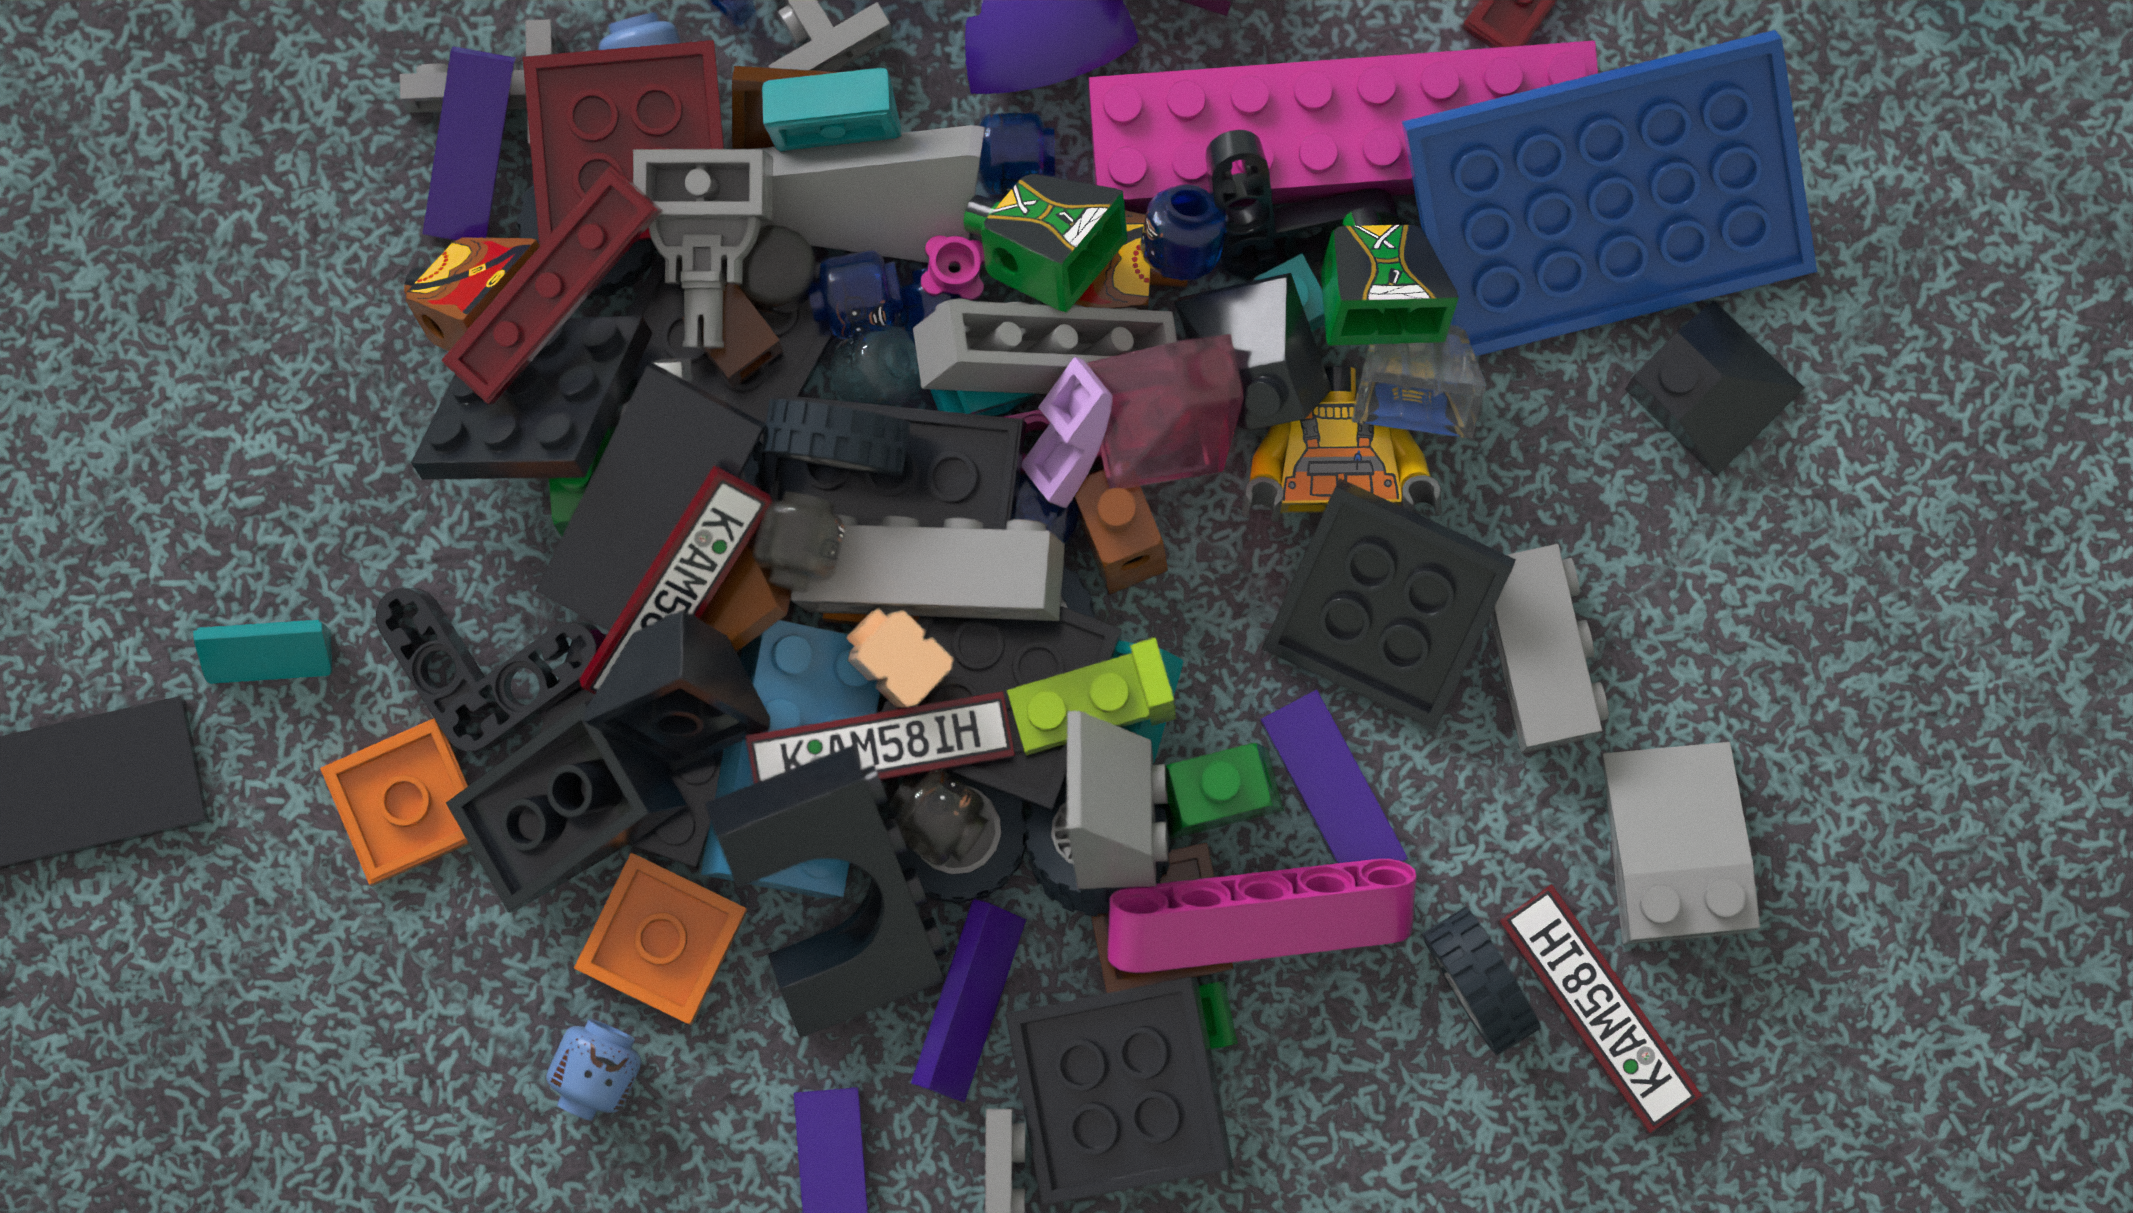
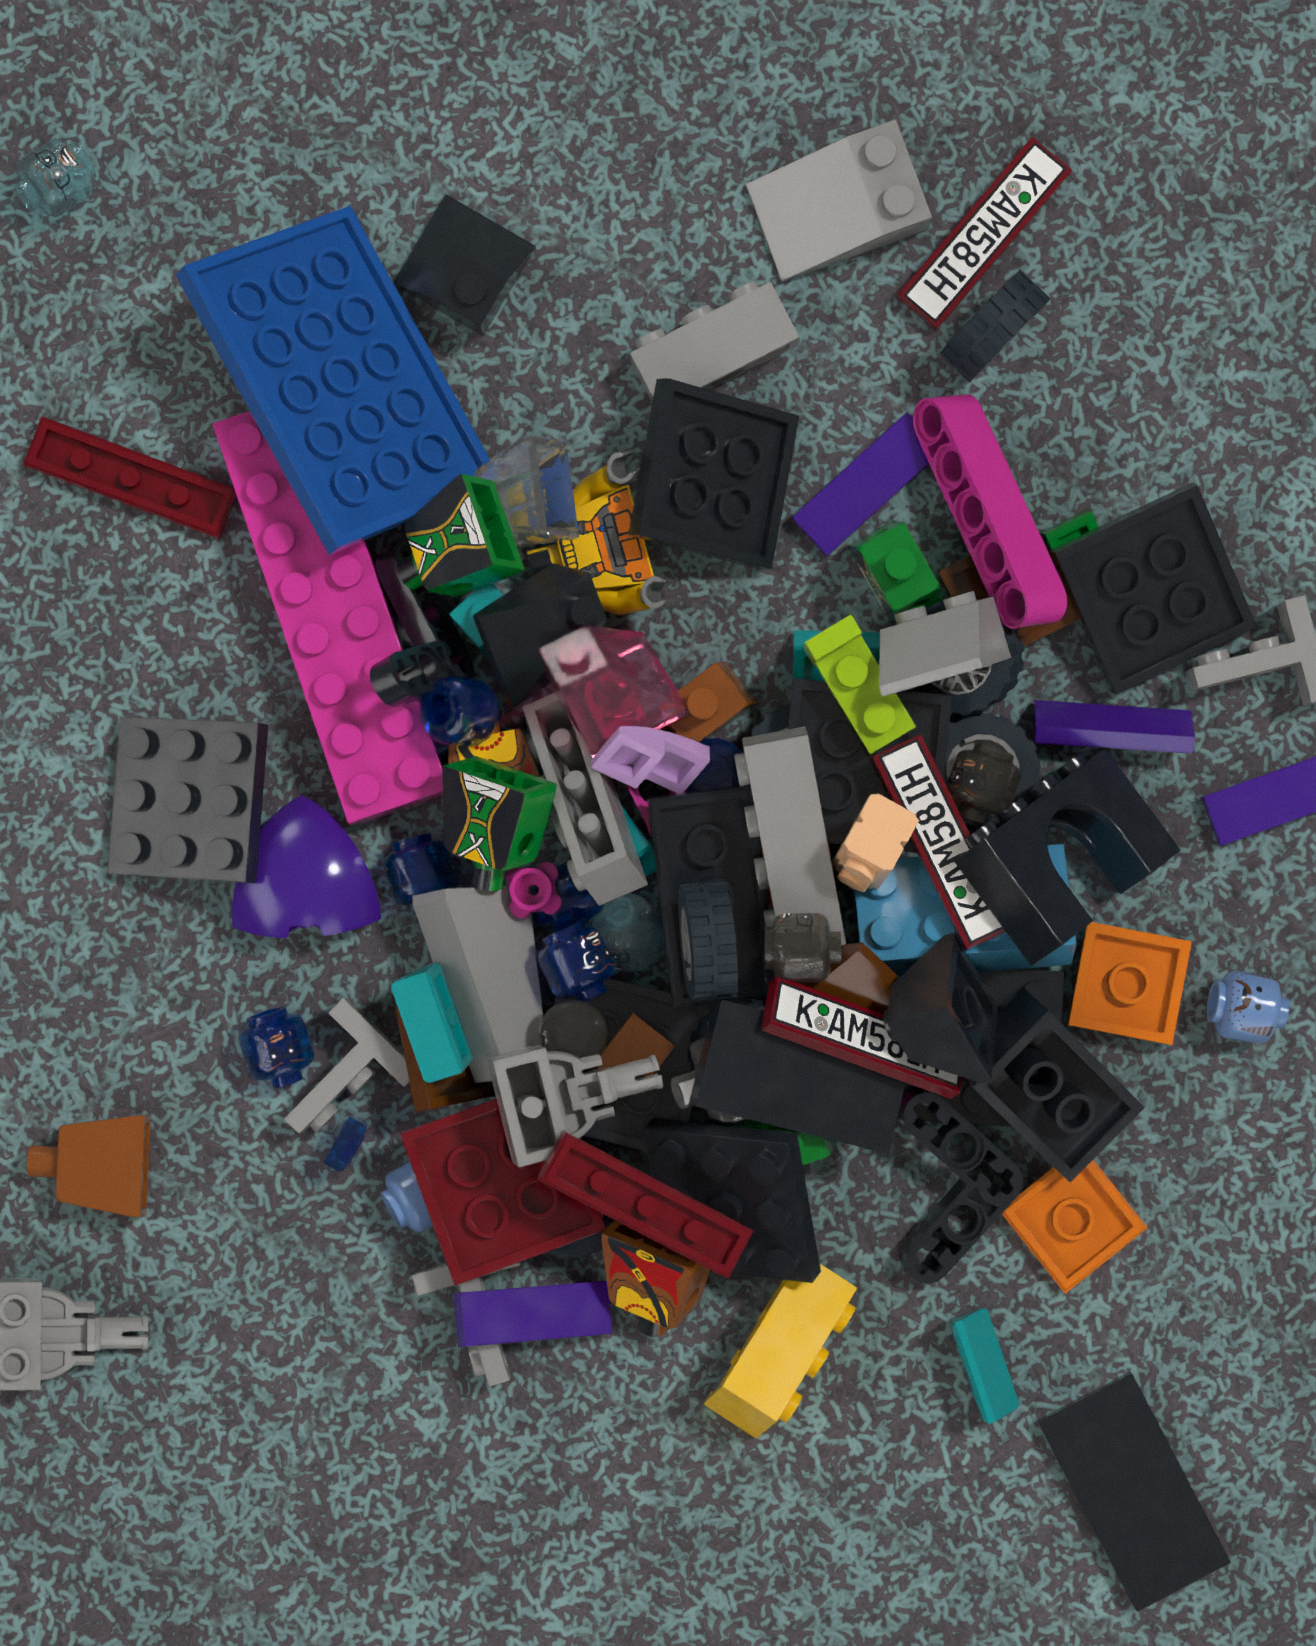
camera: 105 degrees left, 5 degrees up
(347, 420) = (781, 1351): none -> yellow wedge

